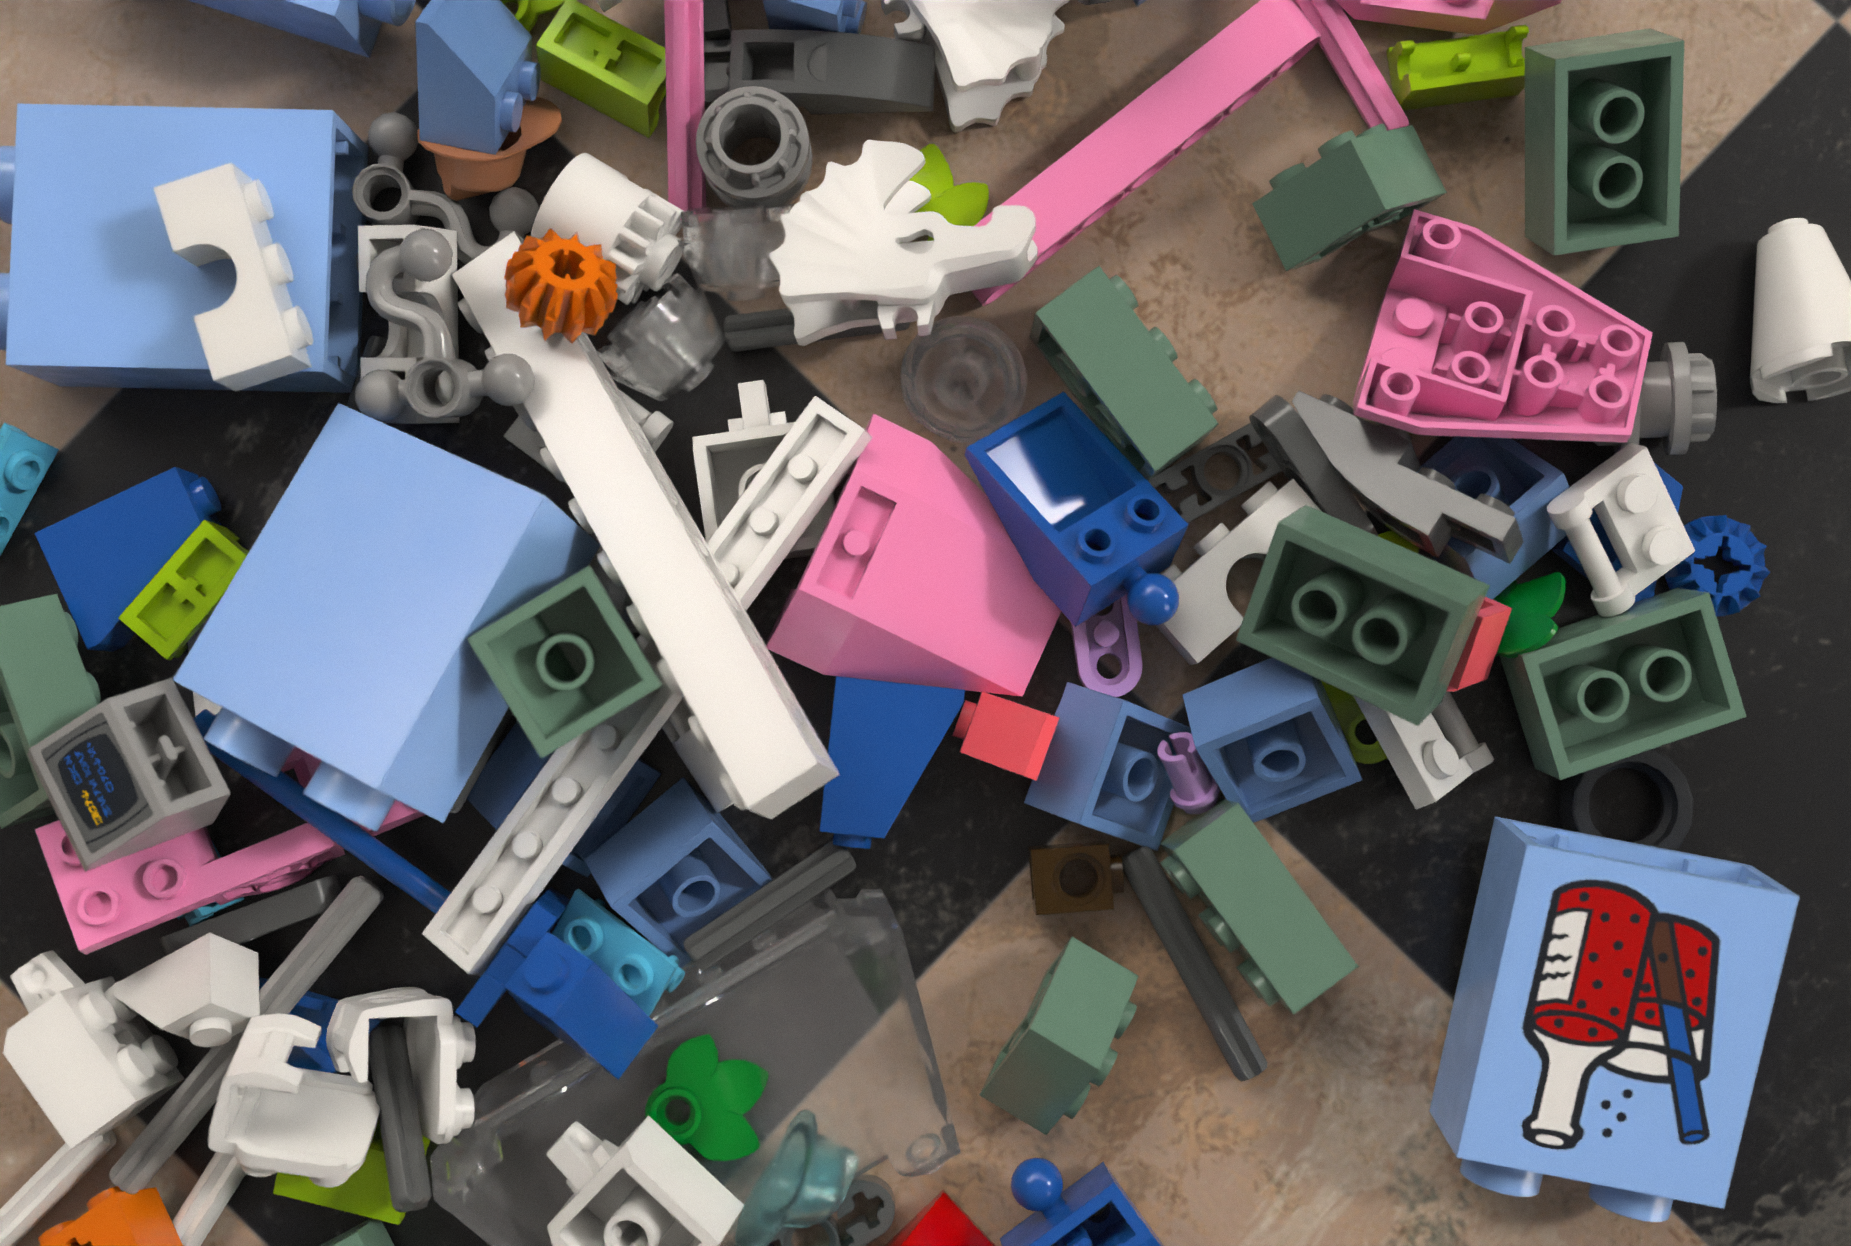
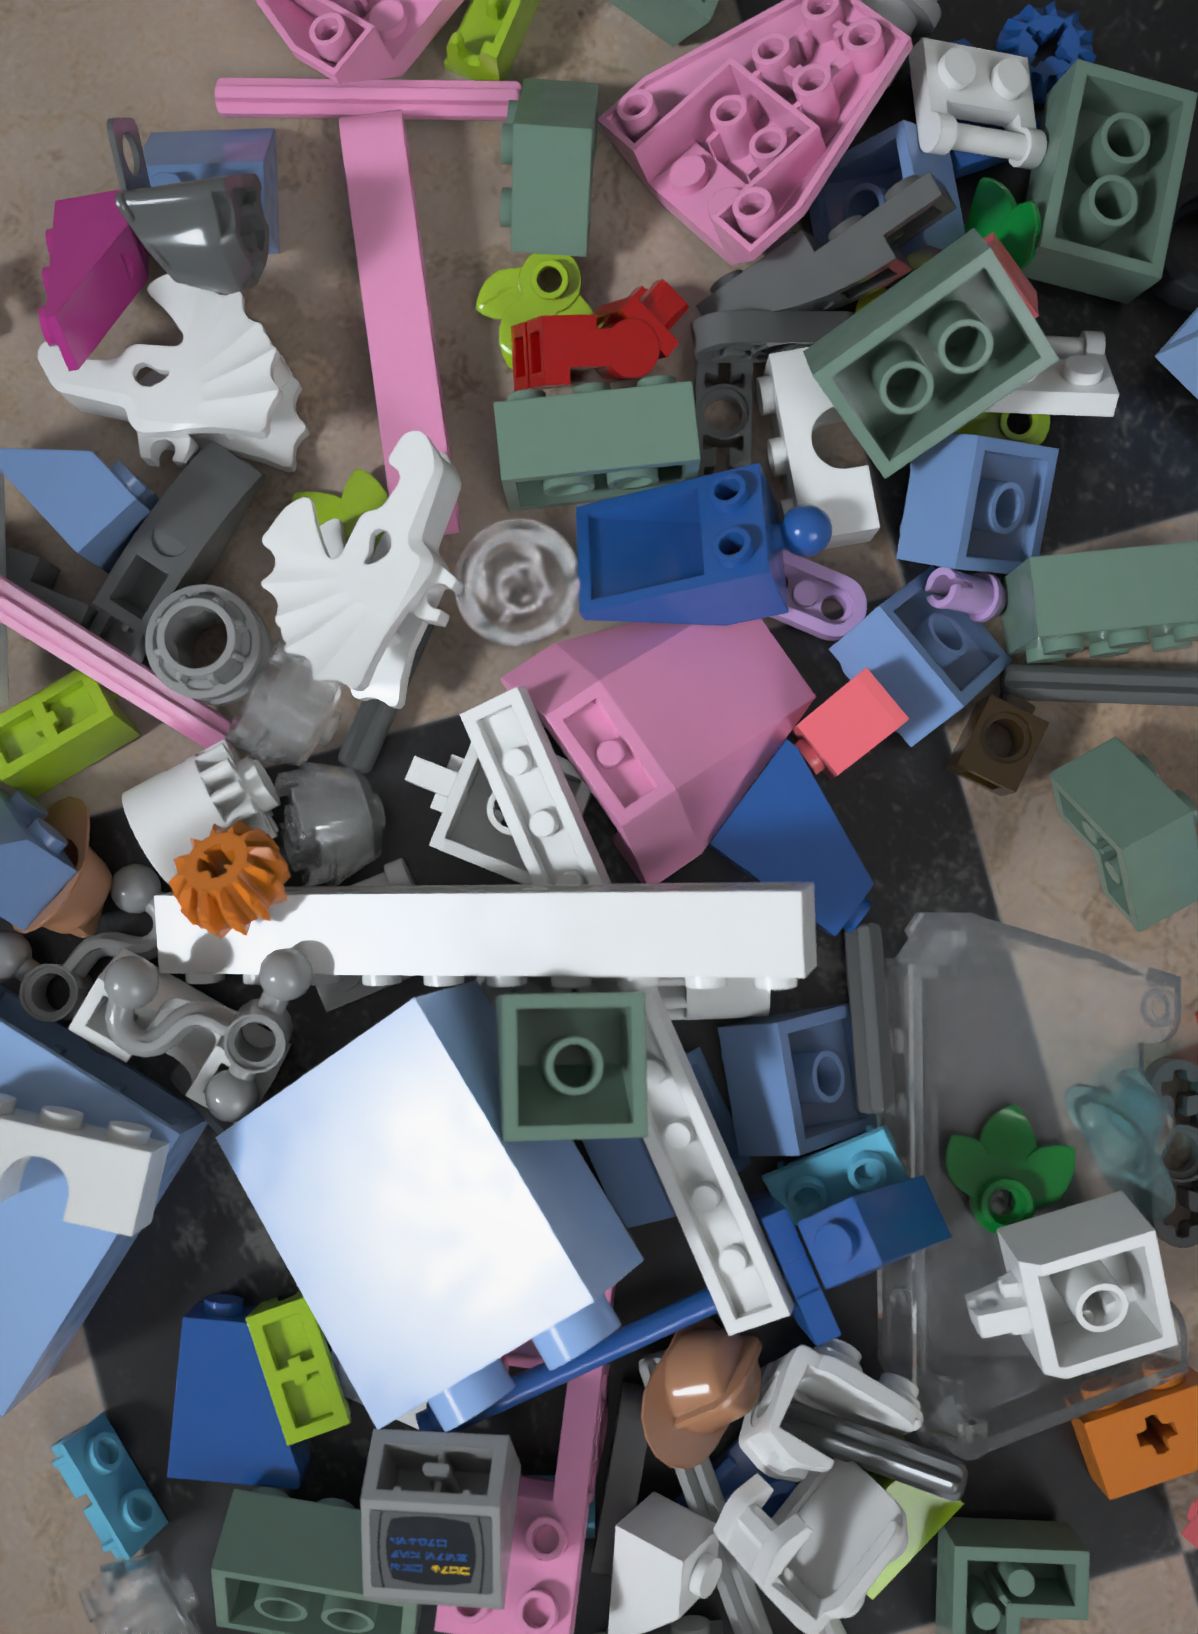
camera: 60 degrees left, 0 degrees up
(362, 940) = (699, 1391): none -> nougat piece
(1210, 260) = (516, 295): none -> lime plate
(1216, 344) = (605, 347): none -> red hips

